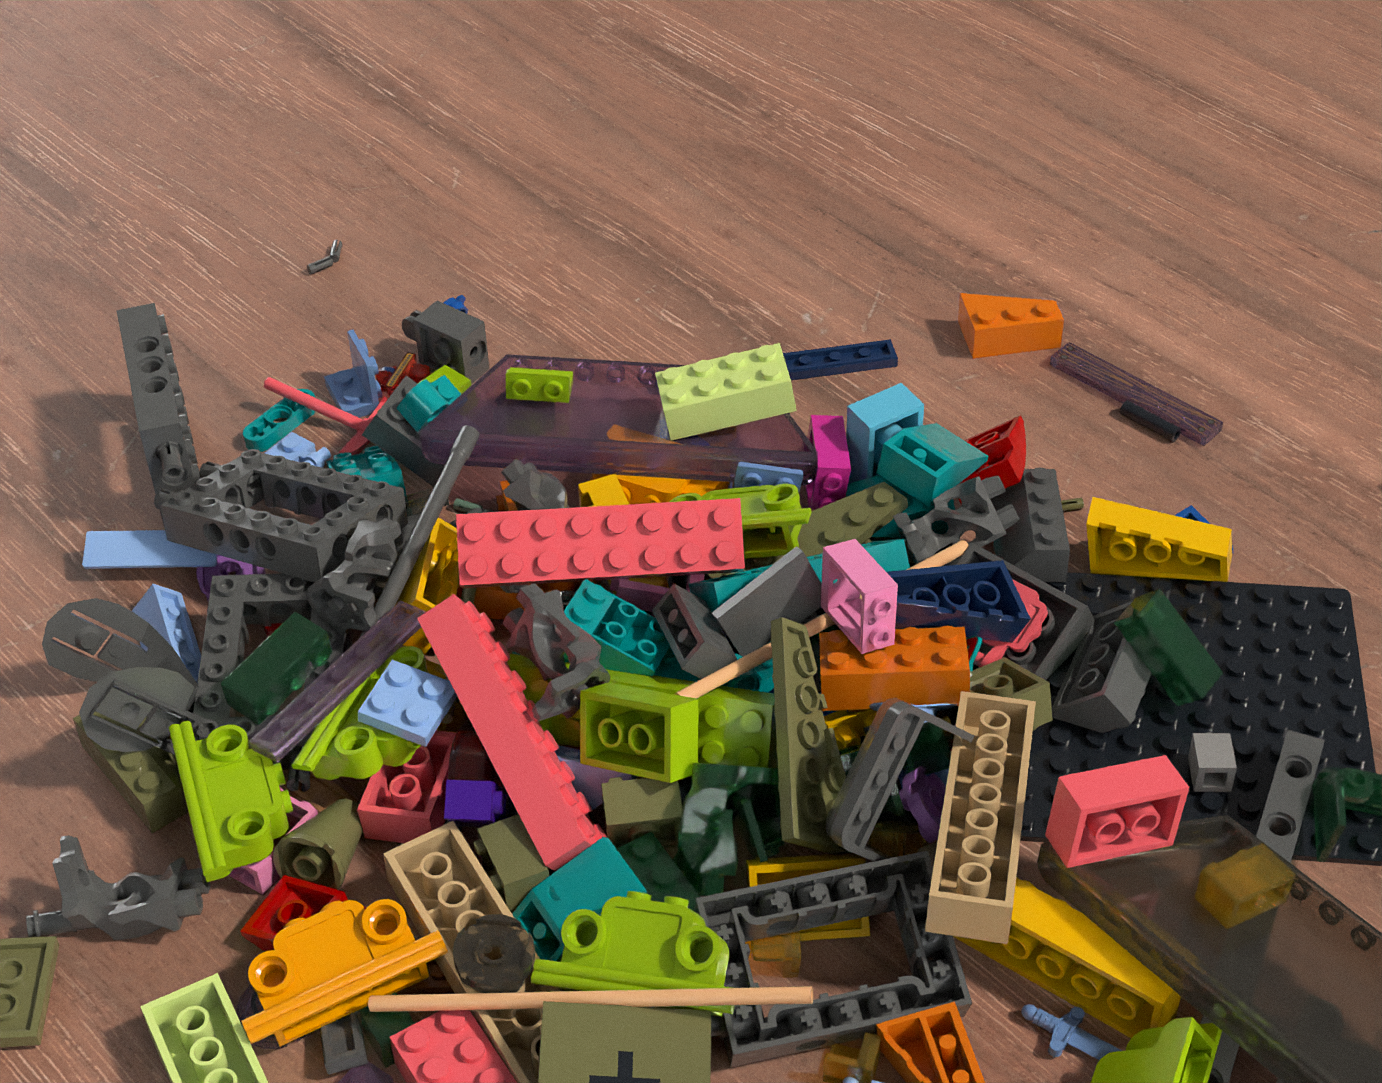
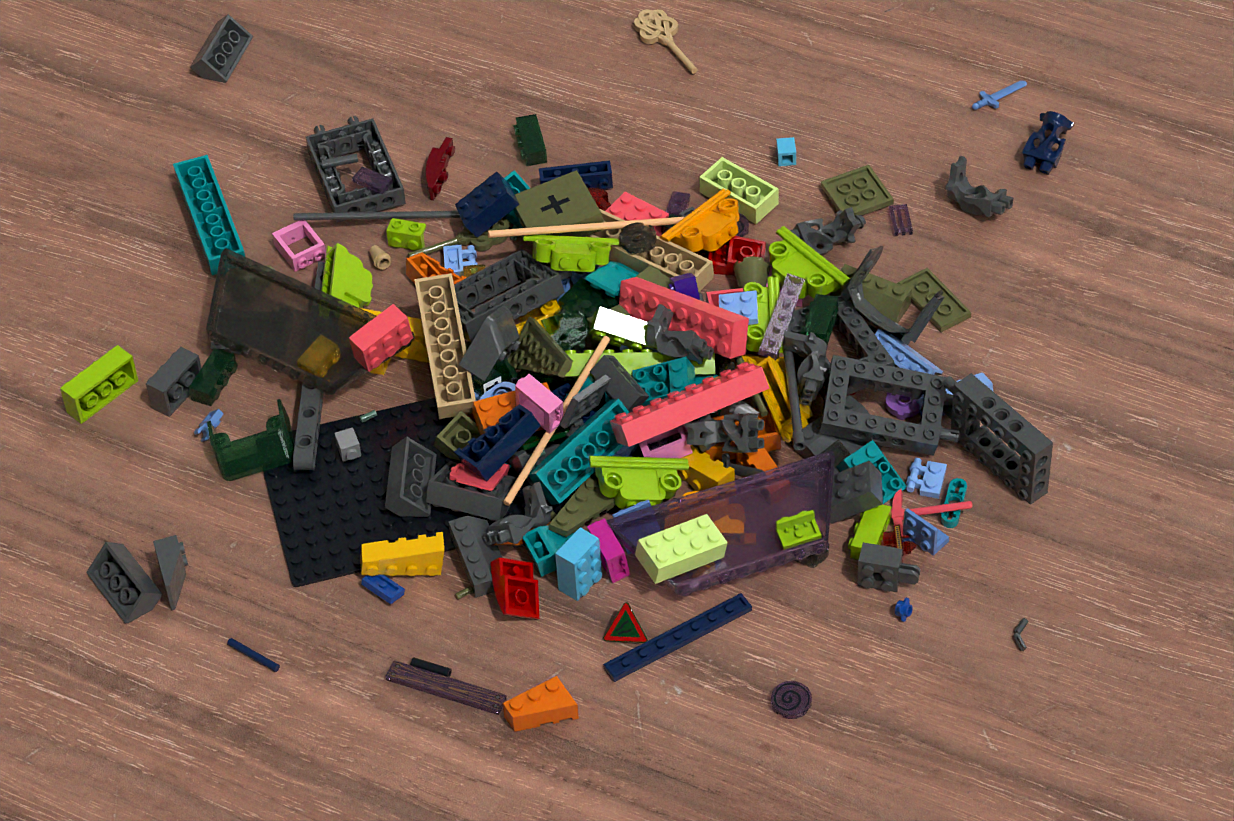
camera: 160 degrees right, 5 degrees up
(39, 735) = (924, 287): none -> olive tile
(427, 401) = (846, 477): teal plate -> none
(666, 264) = (791, 699): none -> clear purple tile
(842, 385) = (625, 627): none -> piece
(928, 461) = (540, 540): teal slope -> none
(1168, 647) = (381, 476): clear green brick -> none

